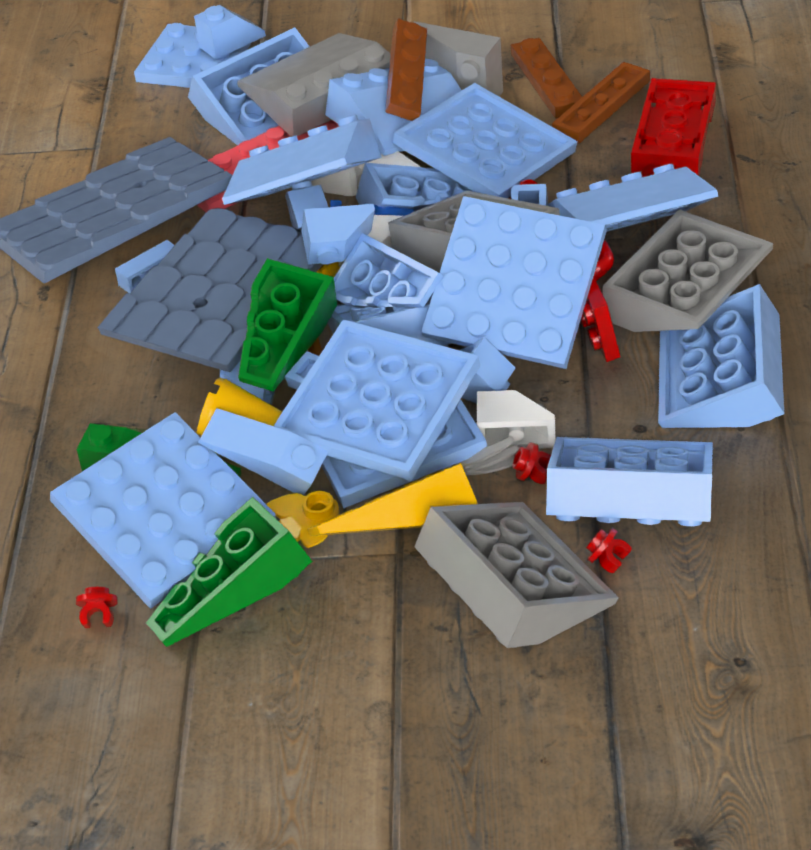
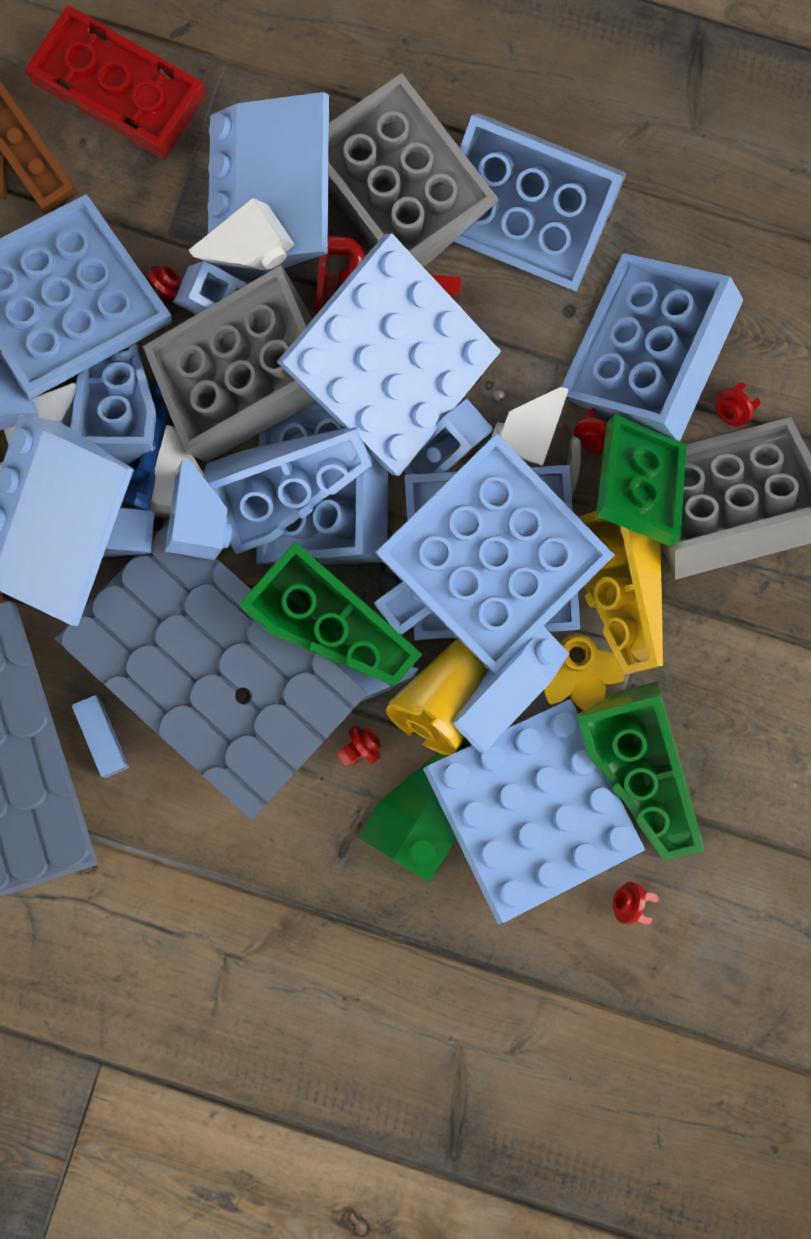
camera: 75 degrees left, 40 degrees up
(188, 398) = (363, 745): none -> red plate
(487, 471) = (642, 480): none -> green plate
(571, 183) = (246, 239): none -> white slope

